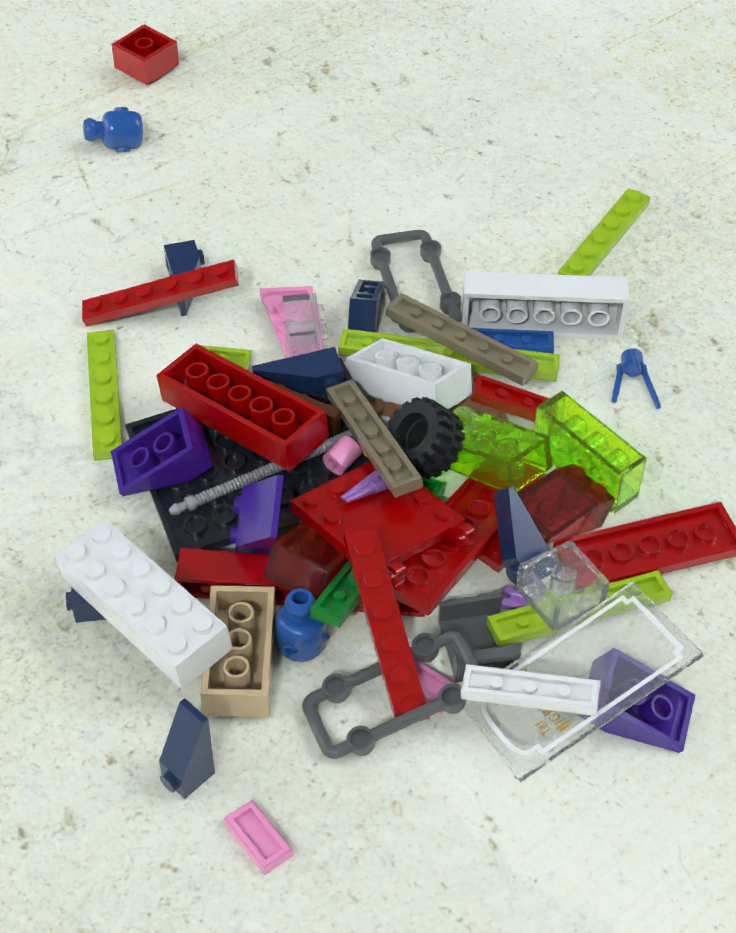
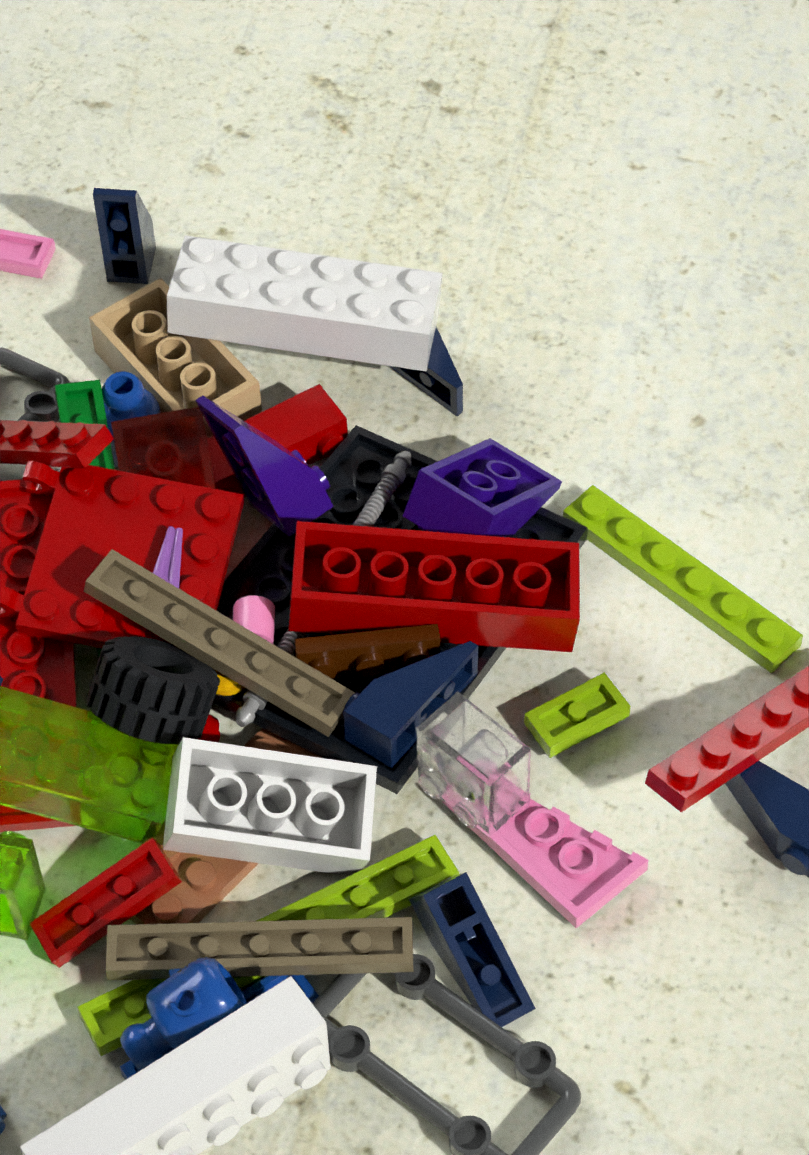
camera: 145 degrees right, 5 degrees up
(515, 326) = (182, 1009): none -> blue piece

